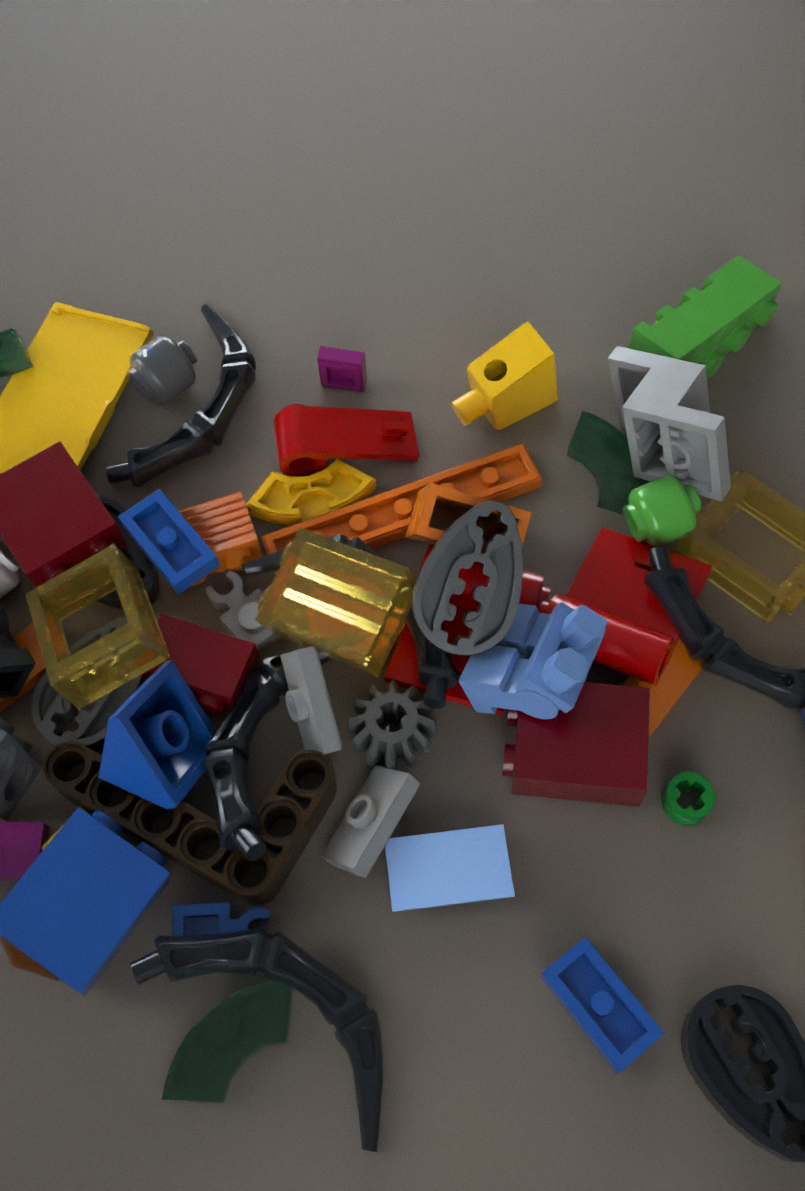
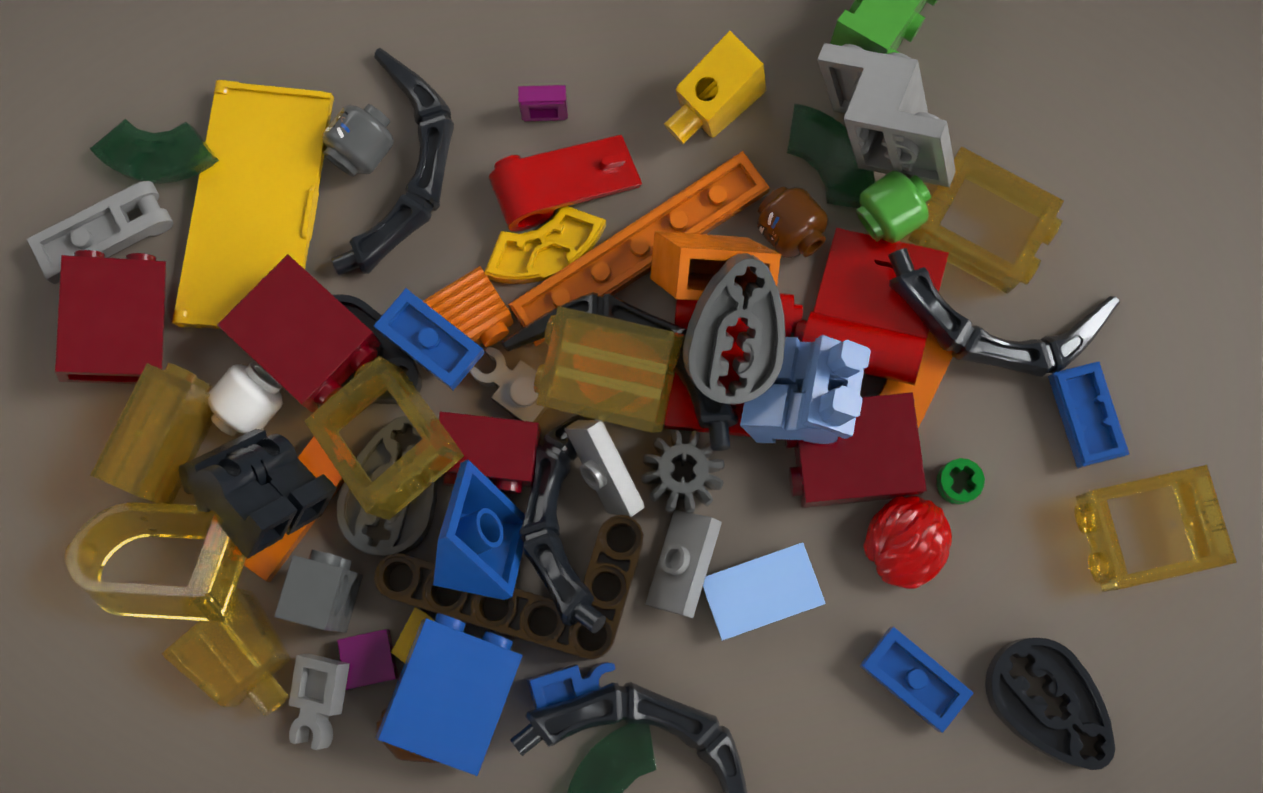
camera: 15 degrees left, 15 degrees up
(558, 511) = (792, 222): none -> reddish brown head
(619, 848) = (908, 541): none -> red hair

